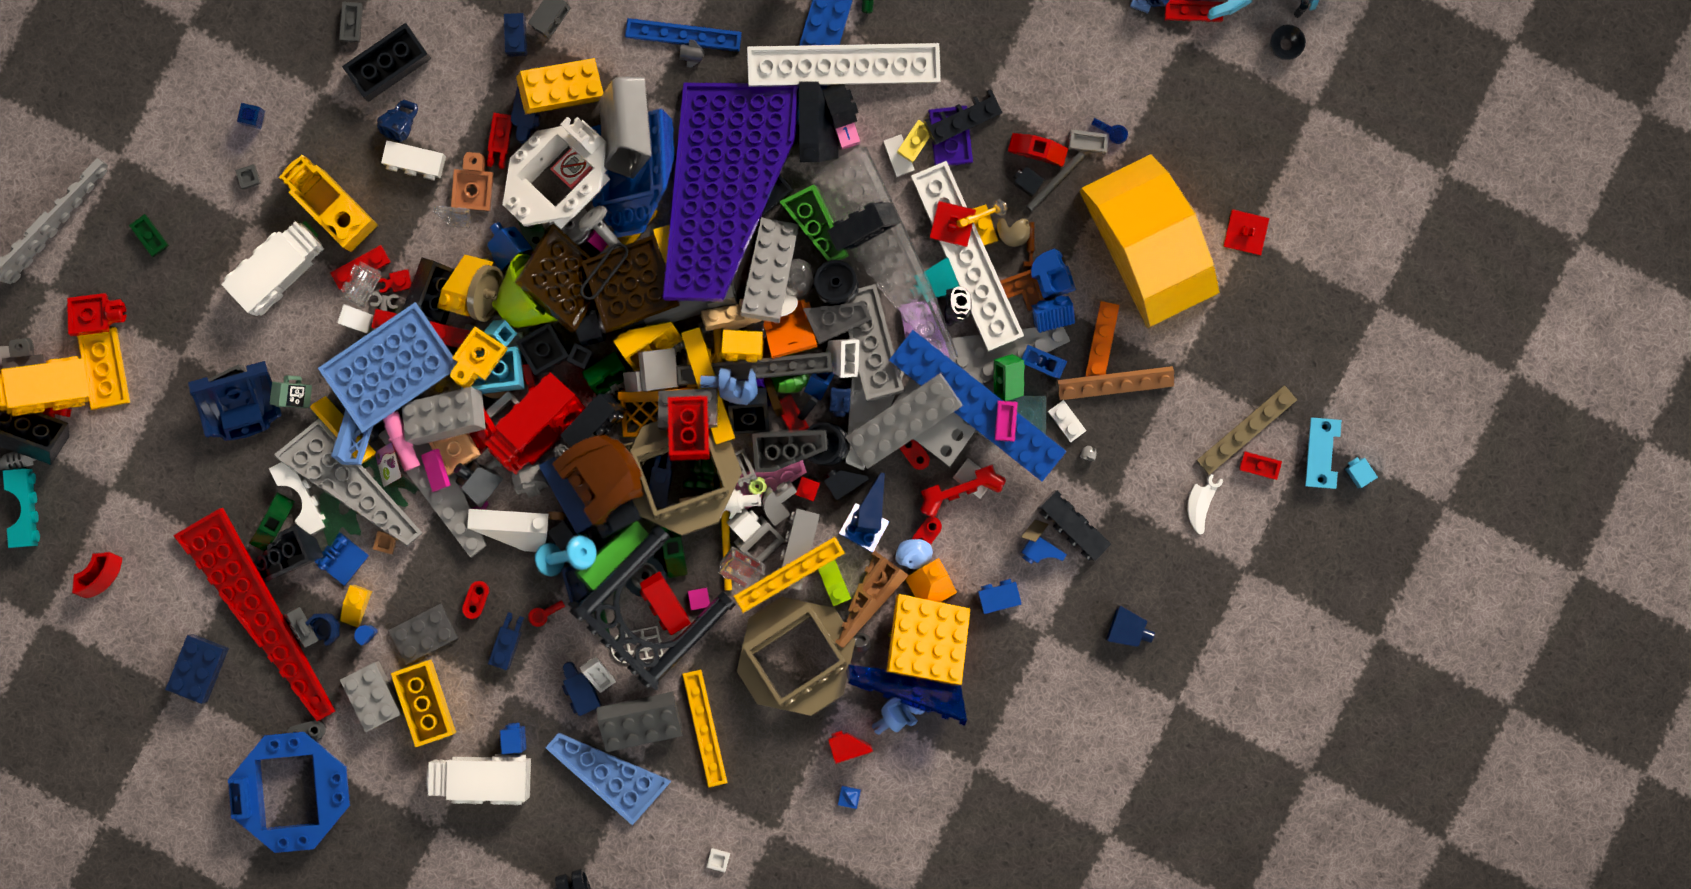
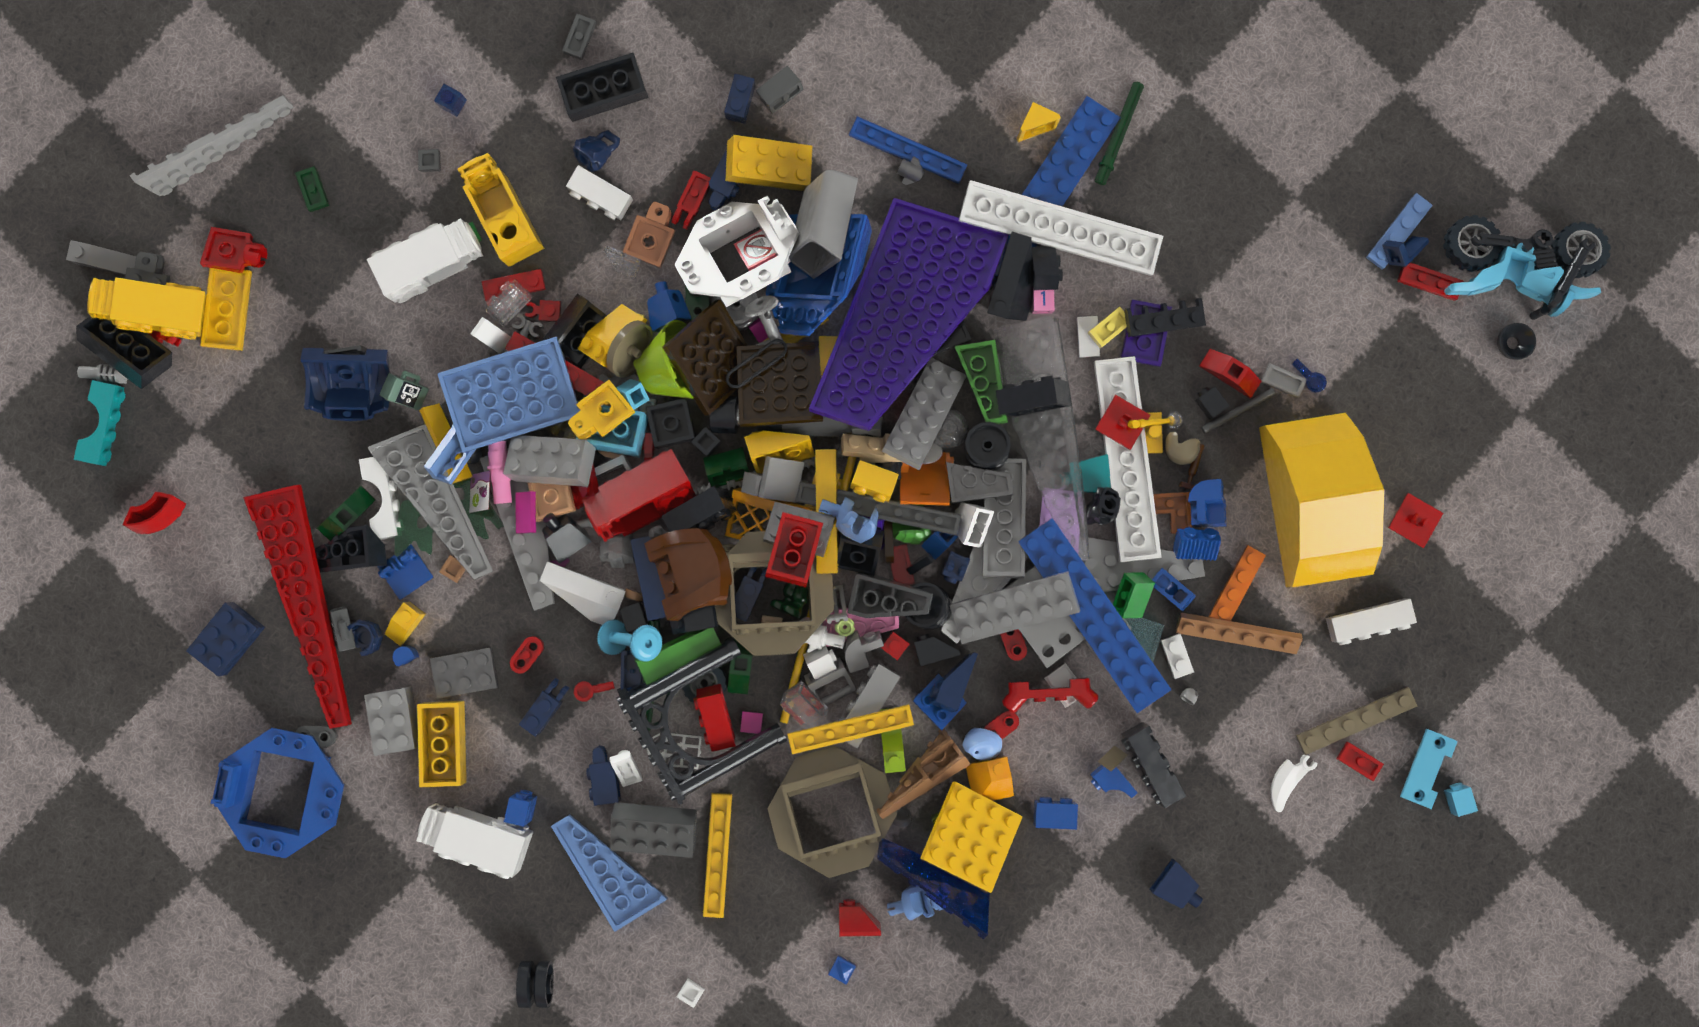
camera: 20 degrees right, 0 degrees up
(1006, 421) = (1120, 640): dark pink tile -> none
(1231, 335) = (1371, 620): none -> white brick

